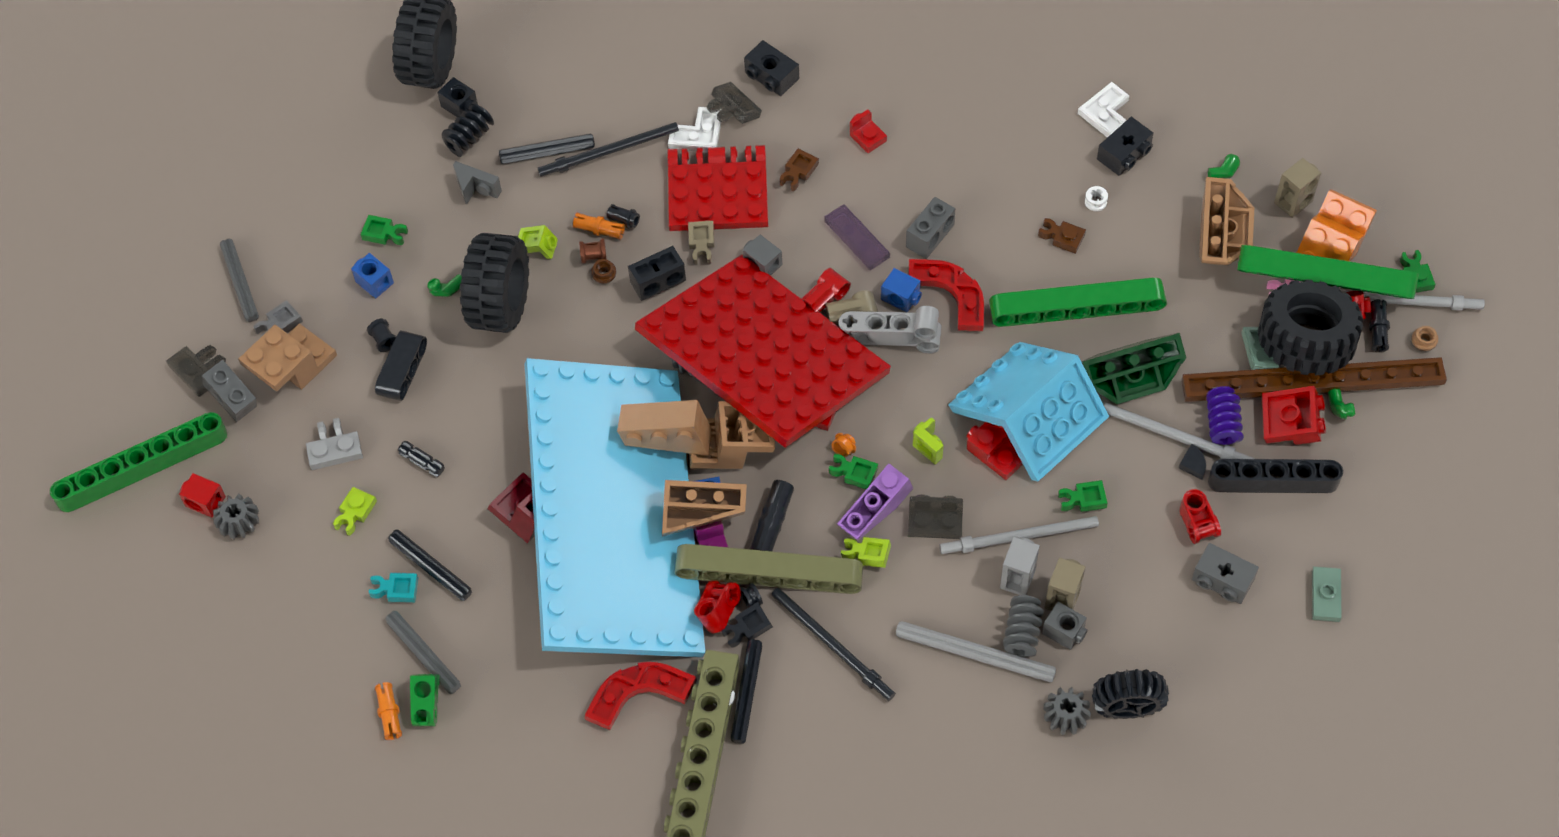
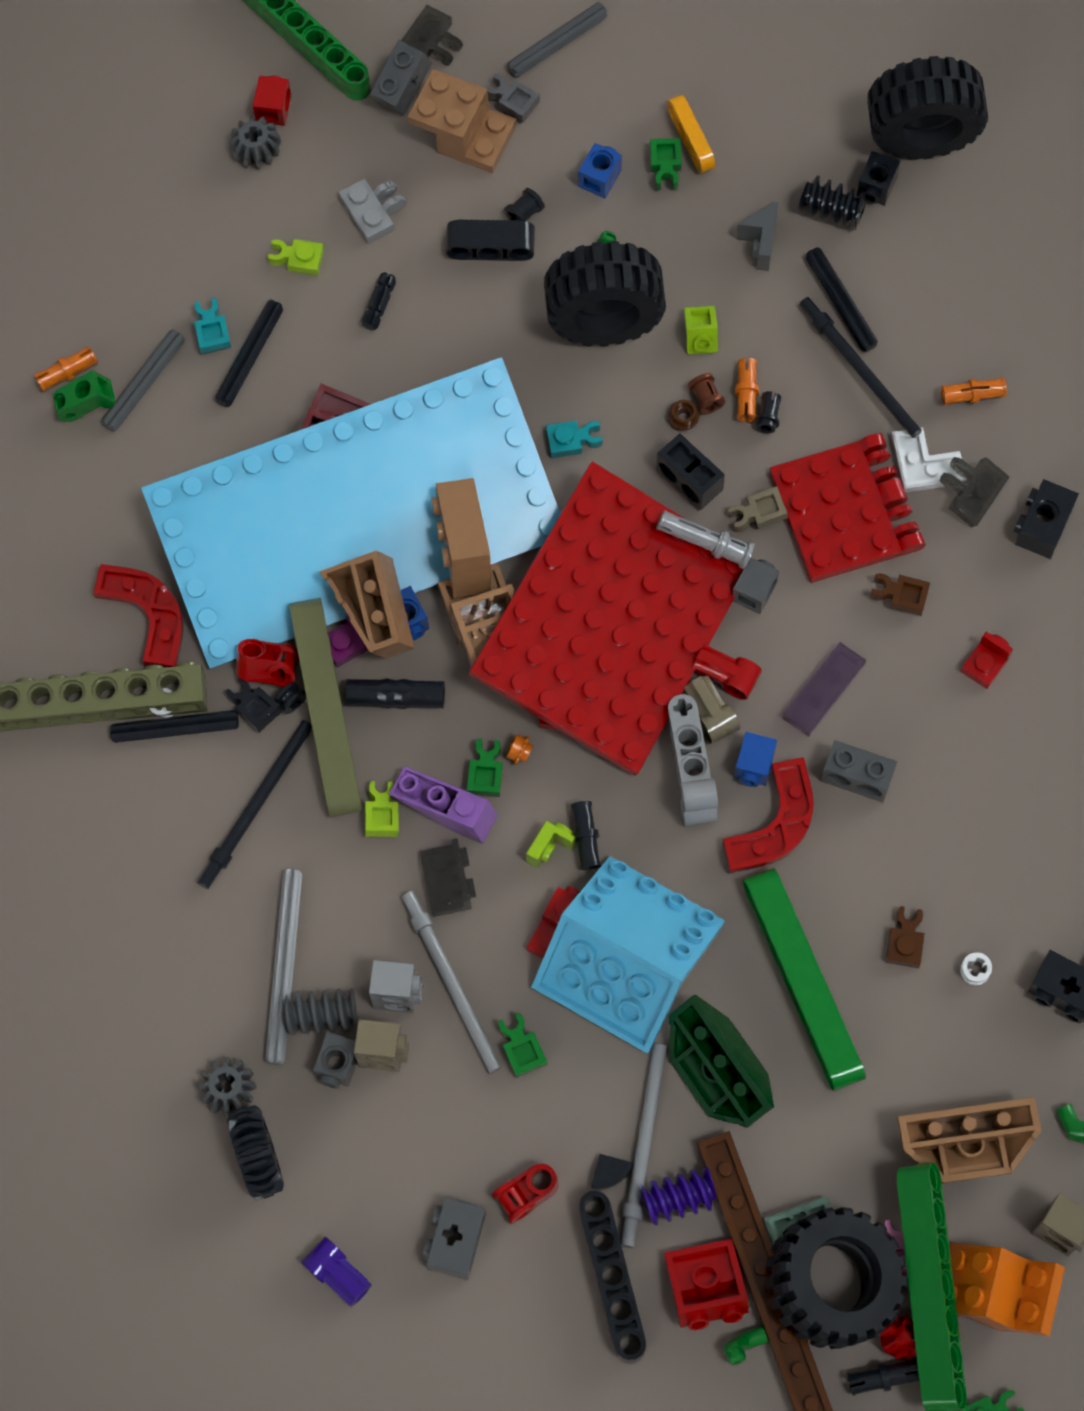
camera: 75 degrees right, 10 degrees up
(351, 209) = (691, 133): none -> light orange beam
(596, 350) = (567, 438): none -> teal plate
(652, 97) = (973, 391): none -> orange pin
(728, 262) = (719, 544): none -> light grey pin
(922, 414) = (586, 835): none -> black pin
(1228, 667) = (330, 1266): none -> dark purple piece
(1326, 594) = (464, 1372): sand green plate -> none

